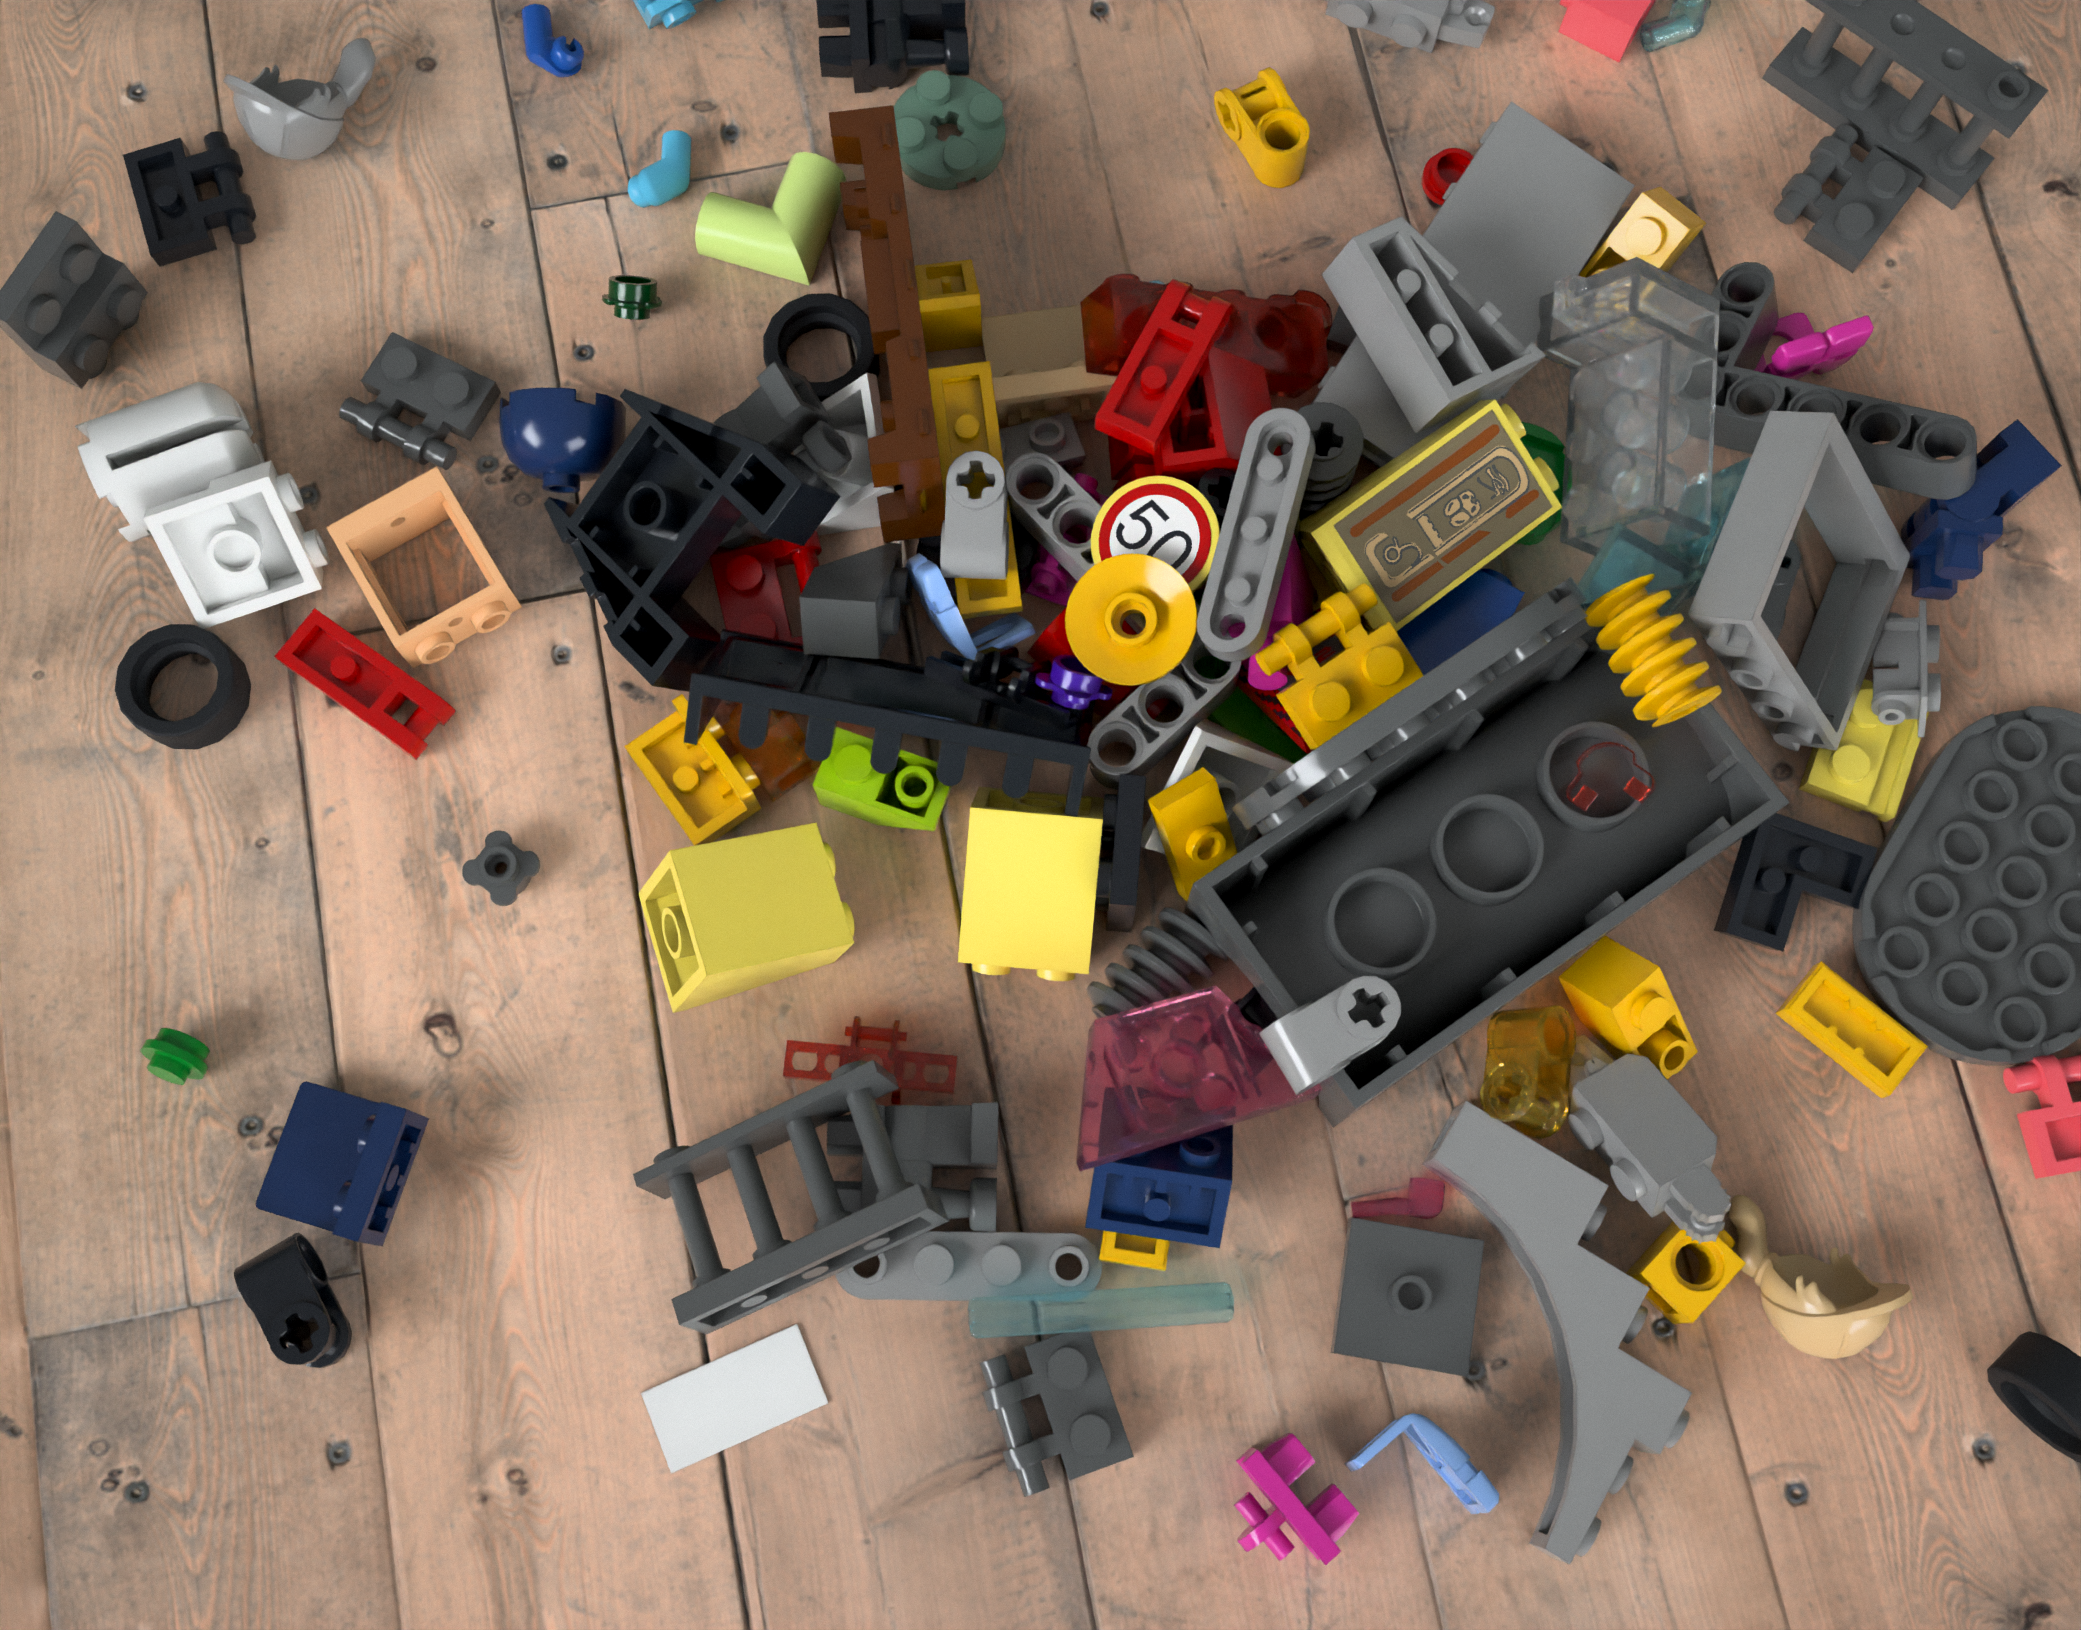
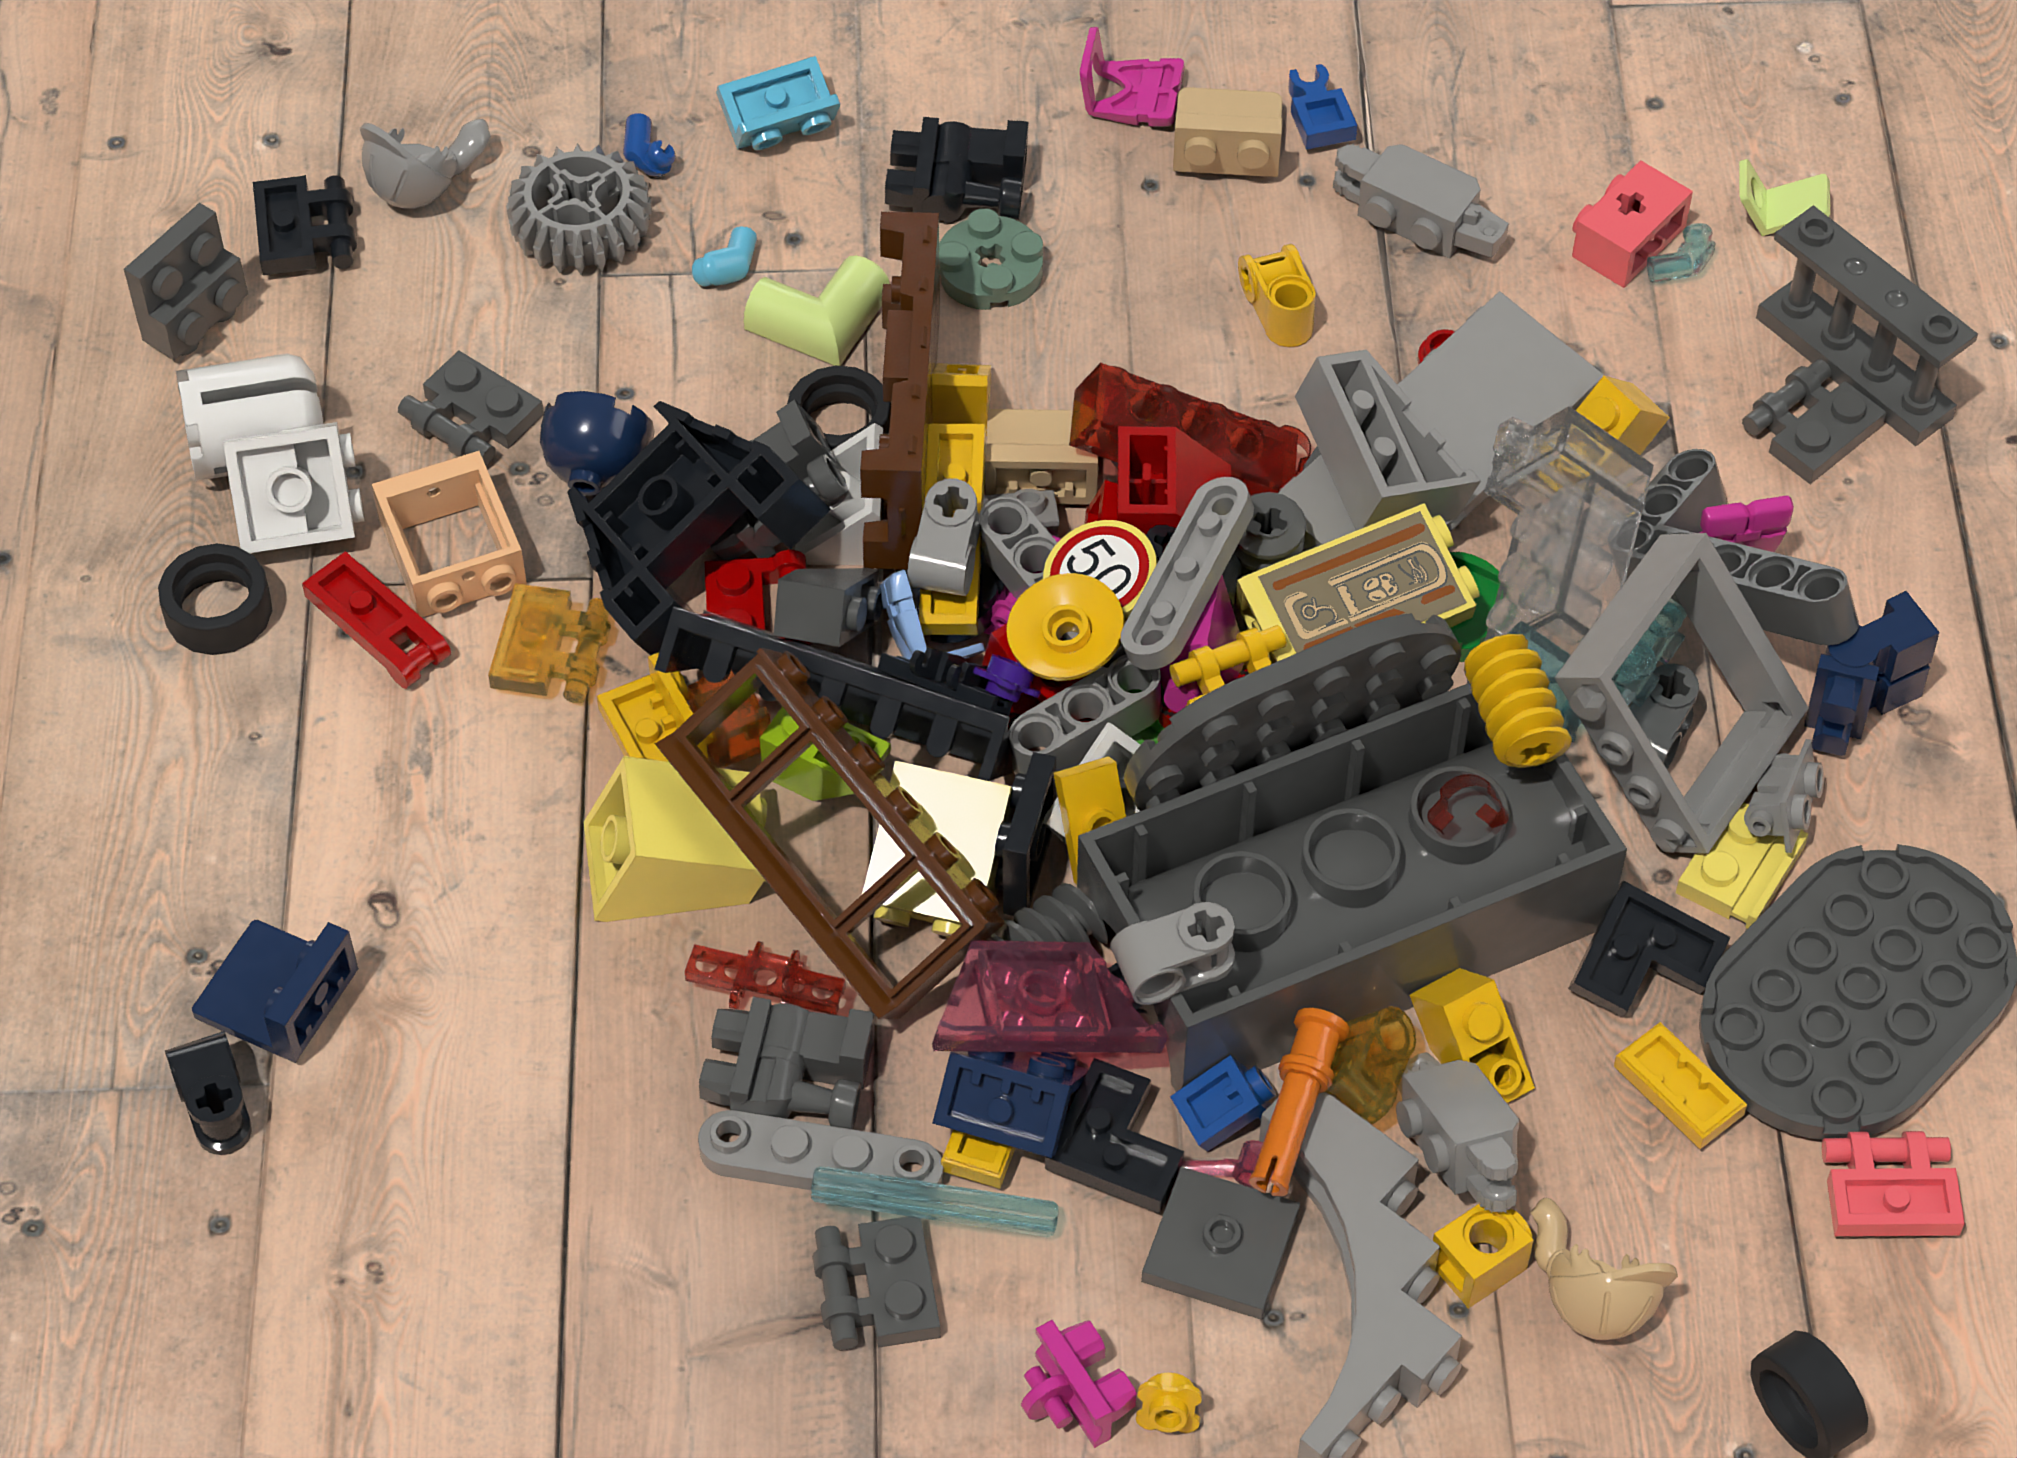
camera: 10 degrees right, 20 degrees down
(176, 1056) = (147, 881): green plate -> none
(486, 157) = (566, 205): none -> light grey gear
(505, 886) = (470, 793): dark grey plate -> none
(540, 685) = (532, 638): none -> clear yellow plate
(632, 296) = (678, 351): dark green plate -> none
(734, 1398) = (585, 1235): white sticker -> none
(839, 1235) = (685, 1097): dark grey fence -> none
(941, 846) = (894, 809): none -> reddish brown window
(1162, 367) = (1131, 433): red plate -> none
(1270, 1215) = (1103, 1150): none -> black plate
(1385, 1134) = (1223, 1101): none -> blue bracket
(1391, 1510) = (1169, 1404): none -> yellow plate
(1442, 1454) = (1221, 1355): light blue piece -> none
(1478, 1114) = (1304, 1075): none -> orange pin

